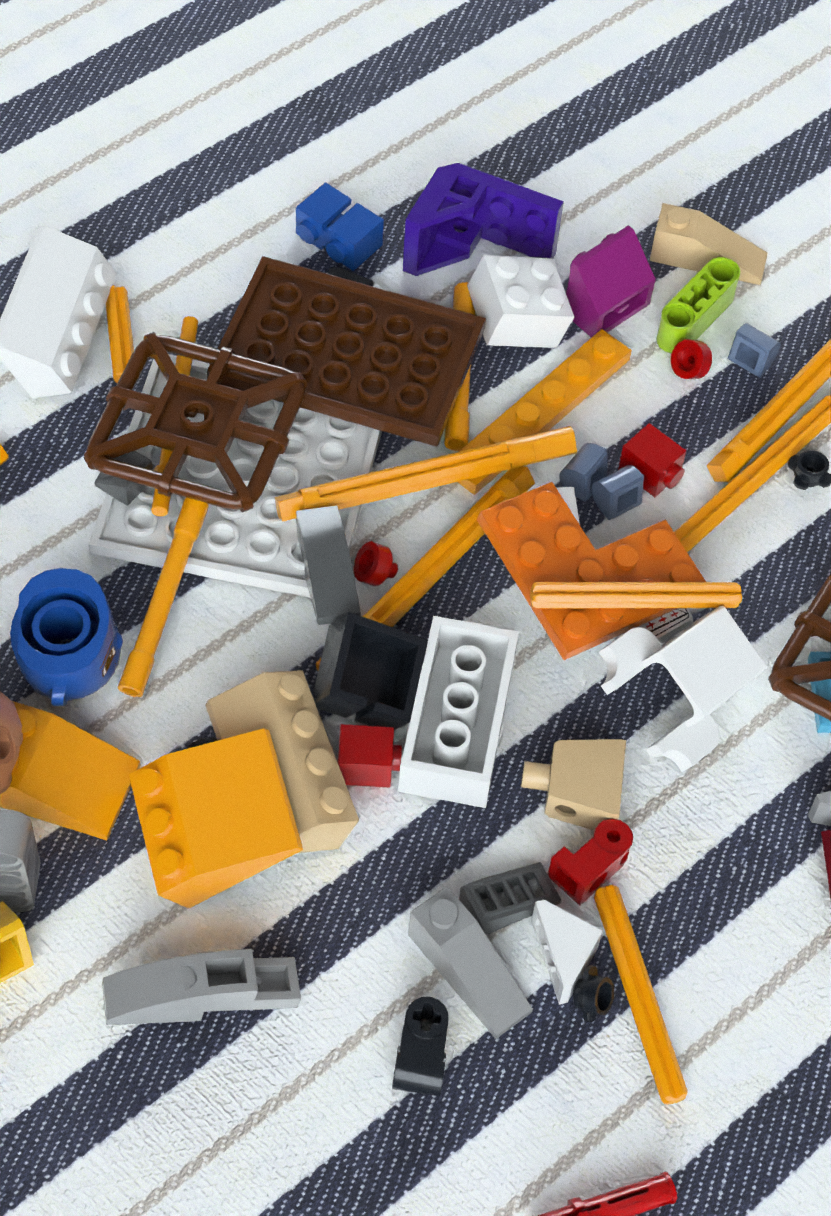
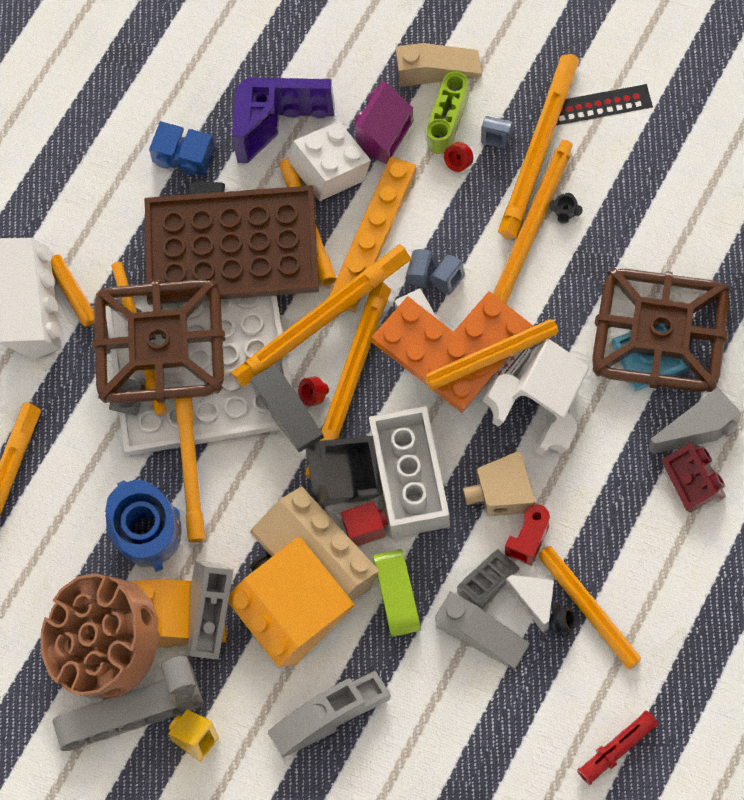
camera: 10 degrees left, 10 degrees up
(97, 780) = (208, 608): none -> light grey slope
(371, 865) = (396, 593): none -> lime beam
(421, 1052) = (475, 699): black piece -> none
(656, 458) = (462, 242): red brick -> none

